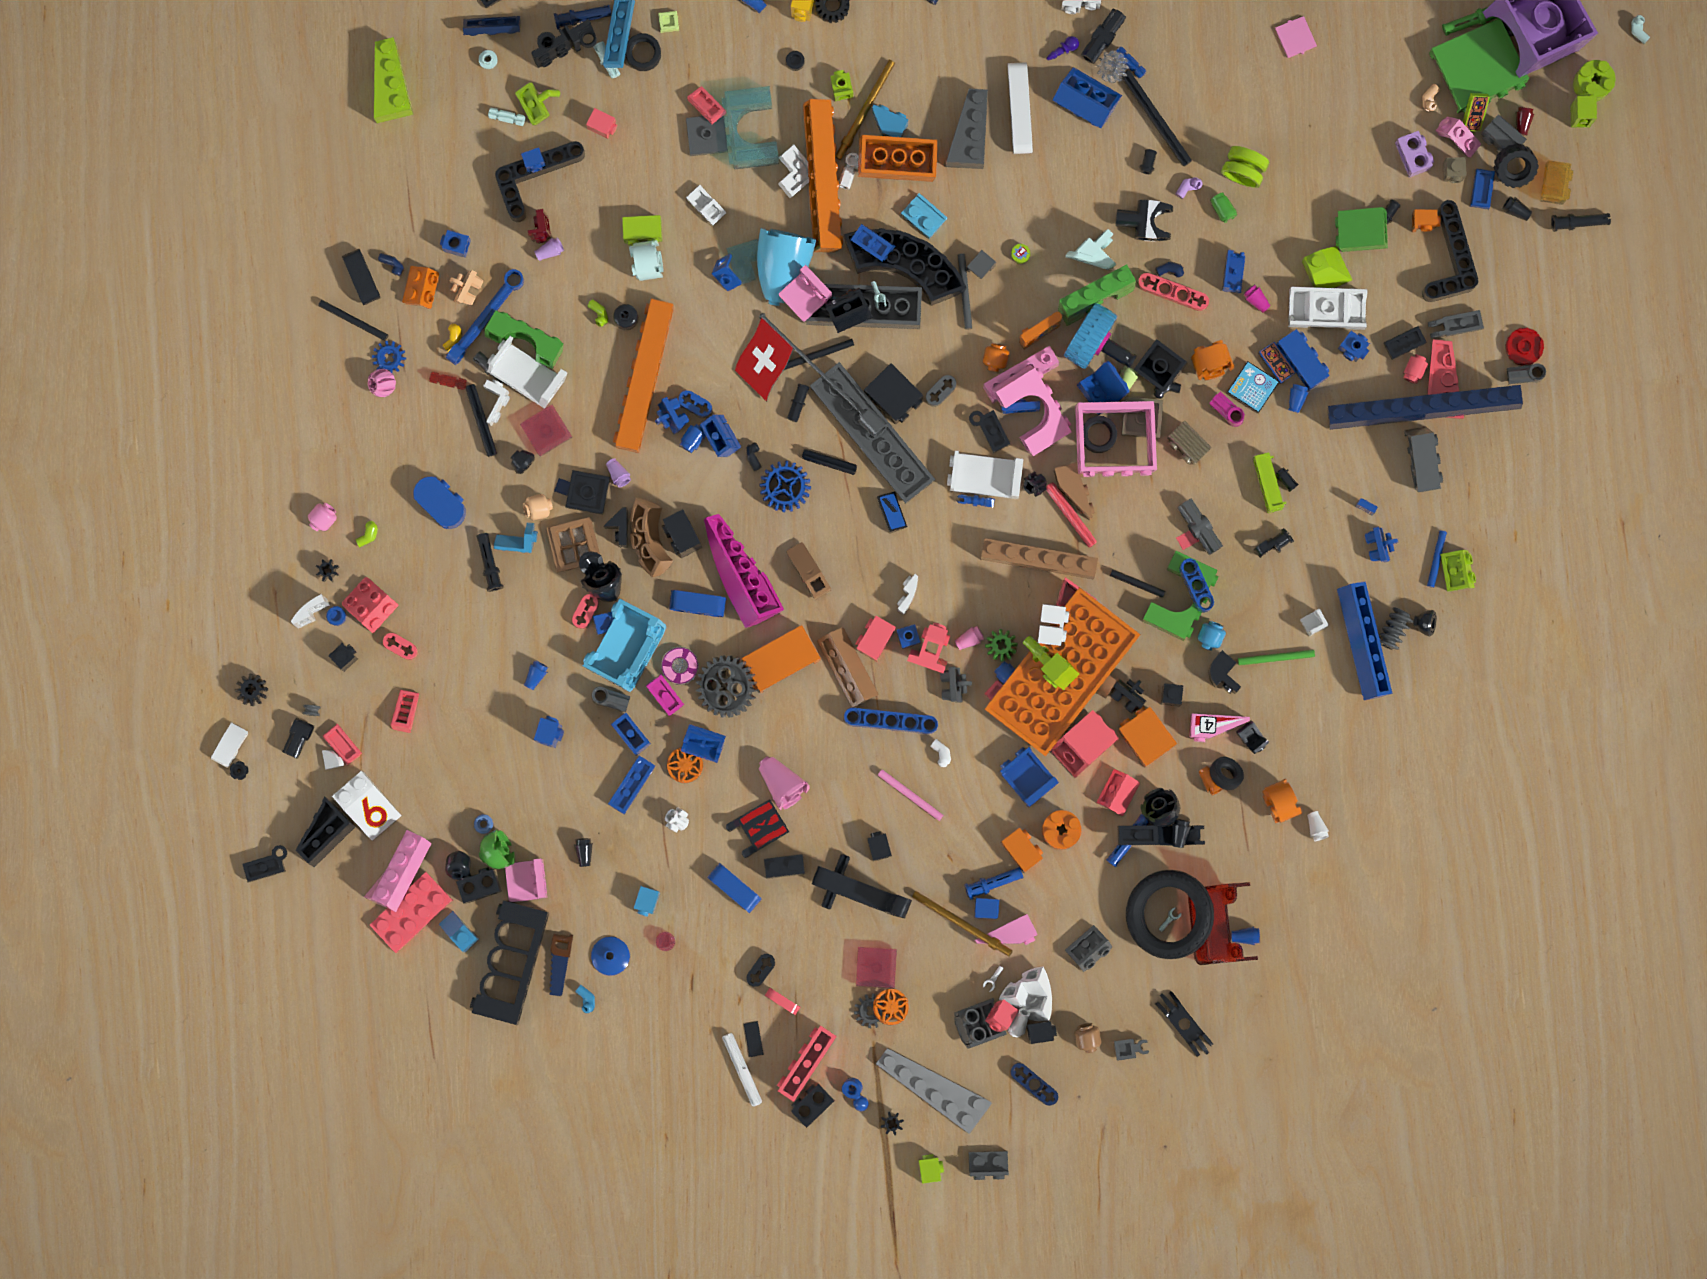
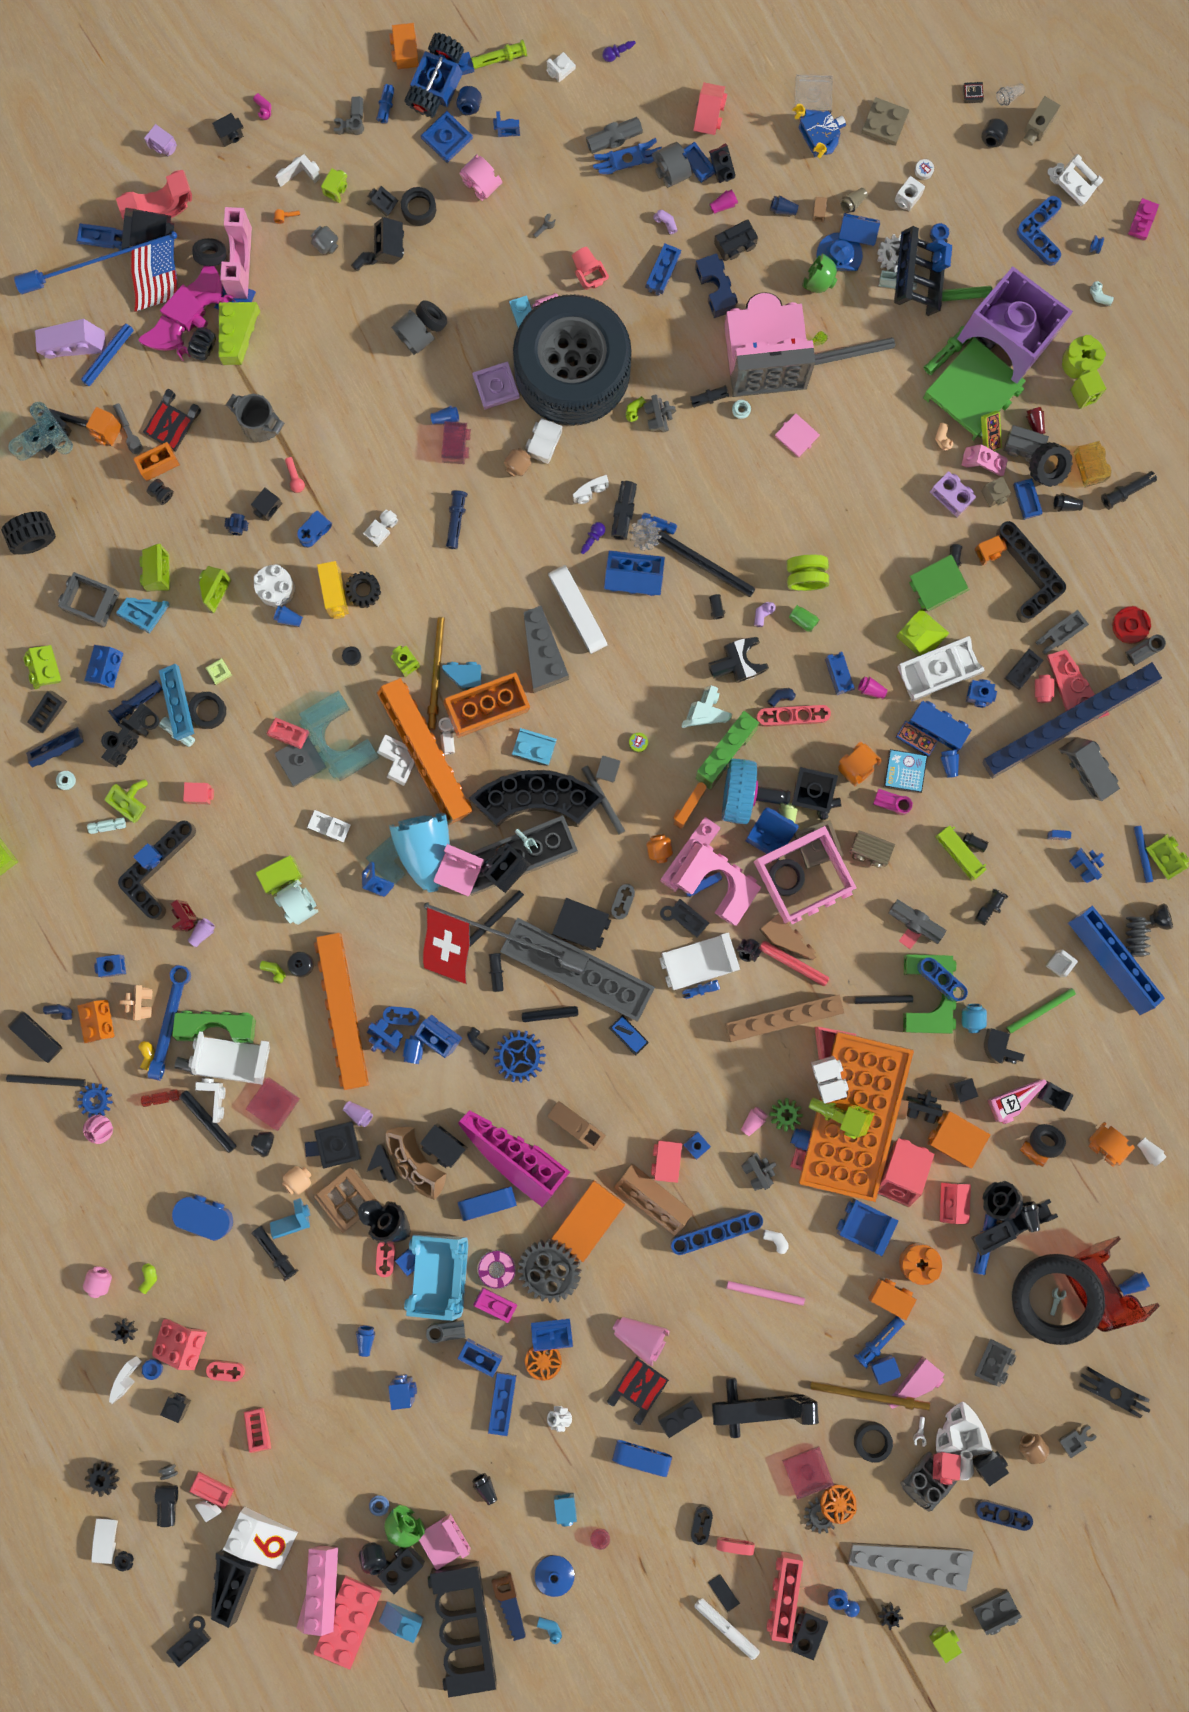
camera: 30 degrees left, 0 degrees up
(872, 242) = (499, 794): blue hinge -> none
(879, 846) = (759, 1356): black brick -> none
(910, 589) = (678, 1099): white slope -> none
(937, 634) = (722, 1134): coral tile -> none
(946, 952) = (884, 1453): none -> black tyre

